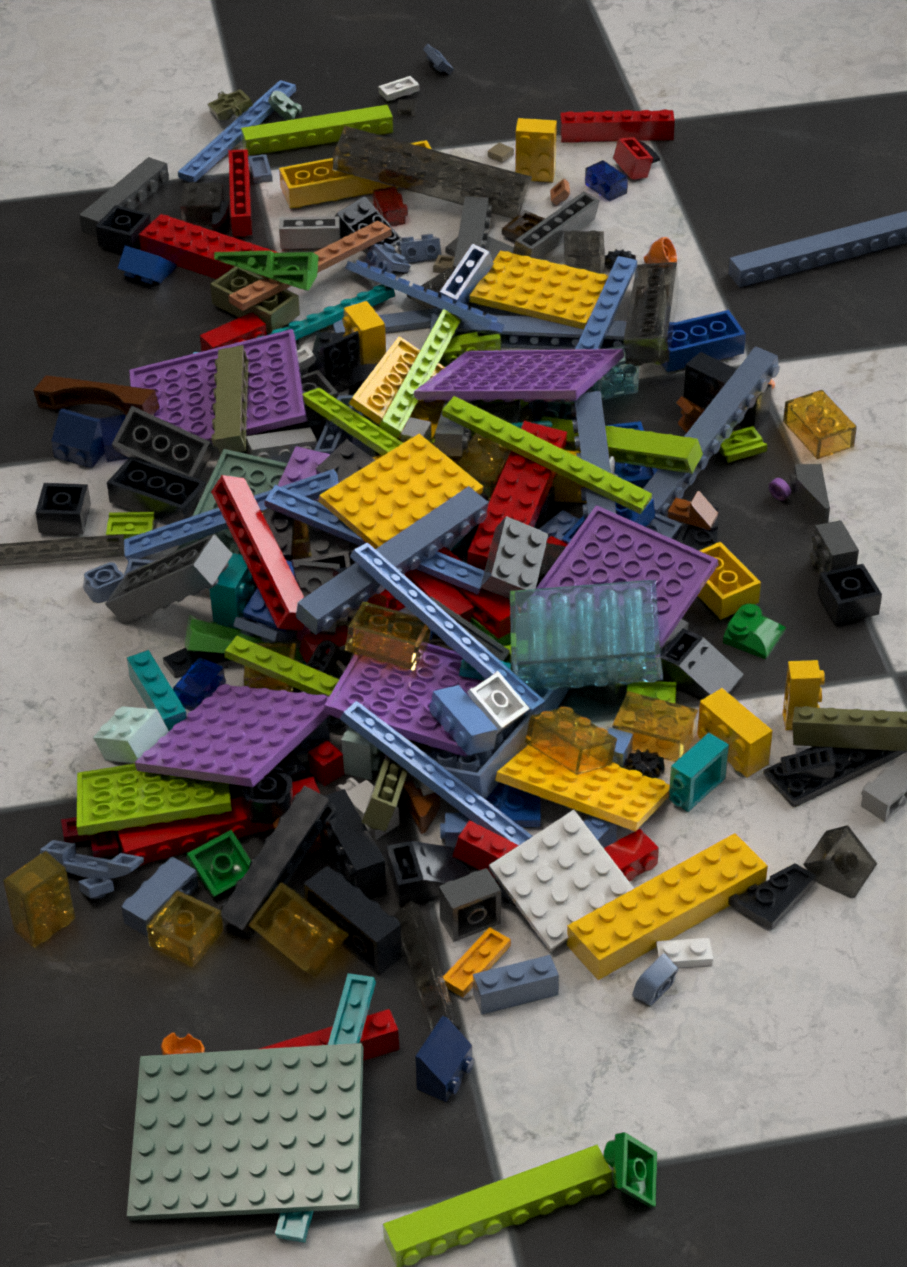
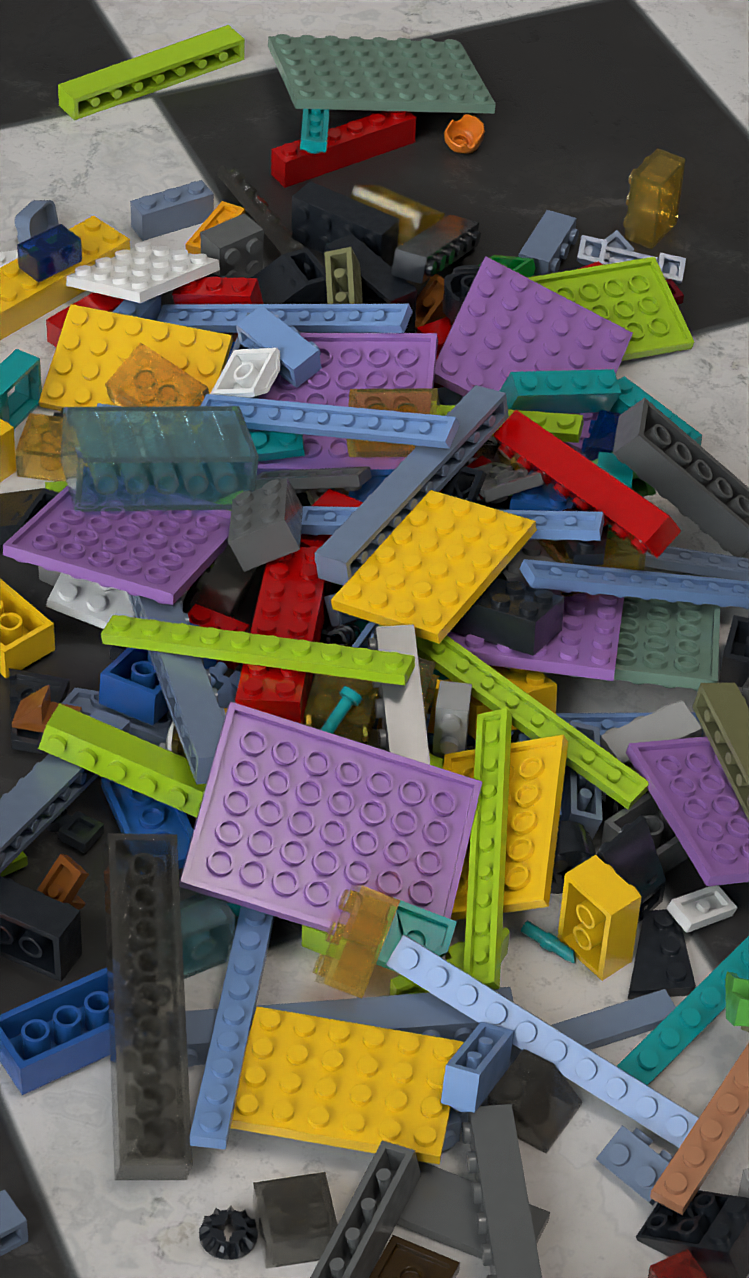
camera: 165 degrees right, 0 degrees up
(130, 734) = (655, 364): light aqua brick -> none
(185, 928) = (507, 214): clear yellow brick -> none
(231, 685) = (562, 390): none -> teal brick
(419, 249) = (598, 1206): sand blue bracket -> none
(443, 263) = (540, 1180): dark tan tile -> none
(443, 1061) = (225, 143): dark blue slope -> none
(485, 345) = (420, 925): none -> teal plate
(519, 328) = (355, 940): none -> clear yellow brick
(633, 1167) = (41, 91): green slope -> none
(649, 886) = (49, 252): none -> clear blue brick
(661, 252) = (152, 1234): orange helmet -> none

